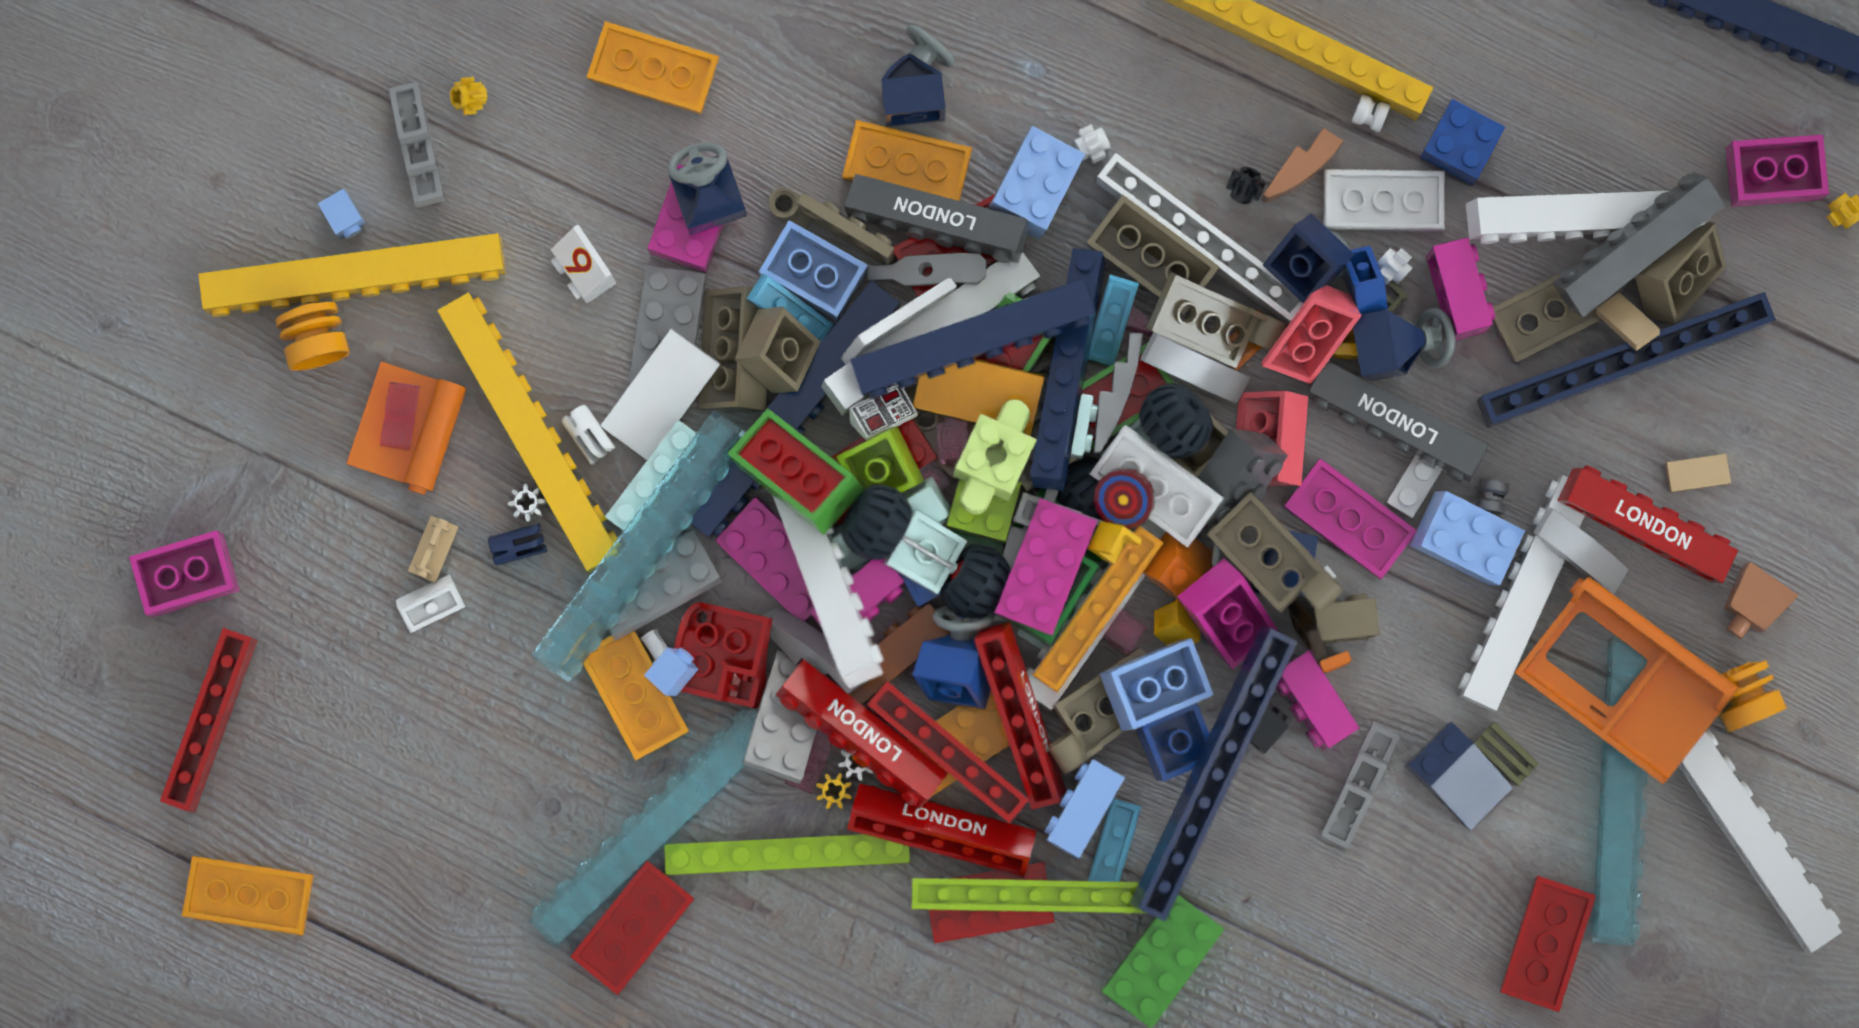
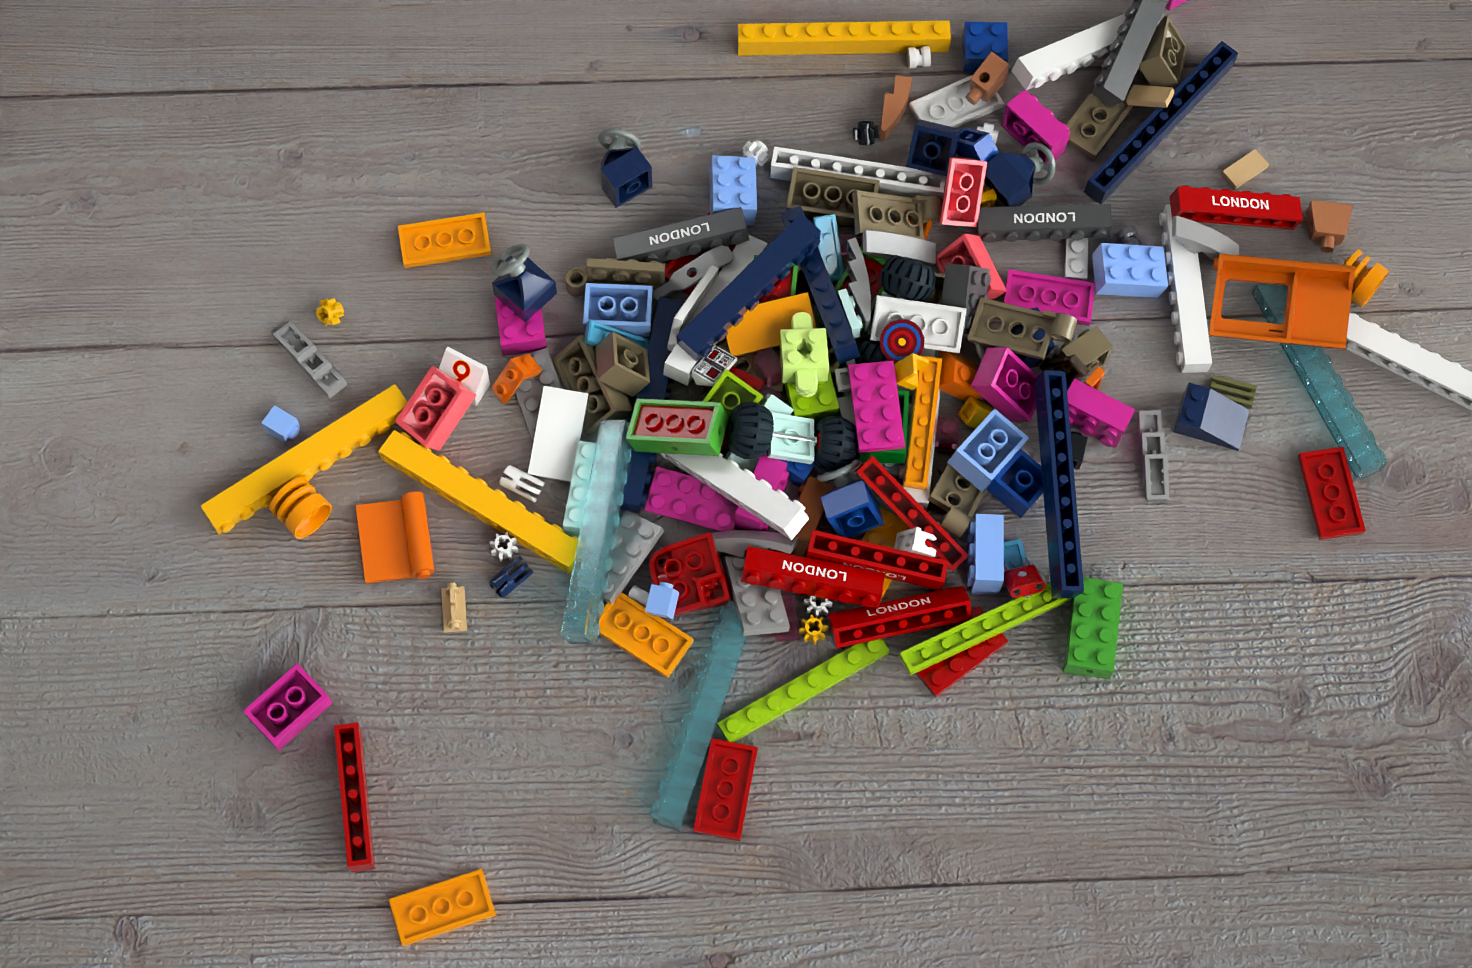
camera: 30 degrees left, 15 degrees down
(399, 415) = (387, 532): clear pink slope -> none
(430, 603) = (470, 646): white slope -> none
(529, 291) = (435, 408): none -> coral slope
(647, 293) = (514, 373): none -> orange bracket
(907, 160) = (638, 217): light orange tile -> none
(999, 756) = (914, 541): none -> white hinge
(1108, 864) = (1023, 580): none -> red piece
(1445, 188) = (988, 79): none -> nougat torso

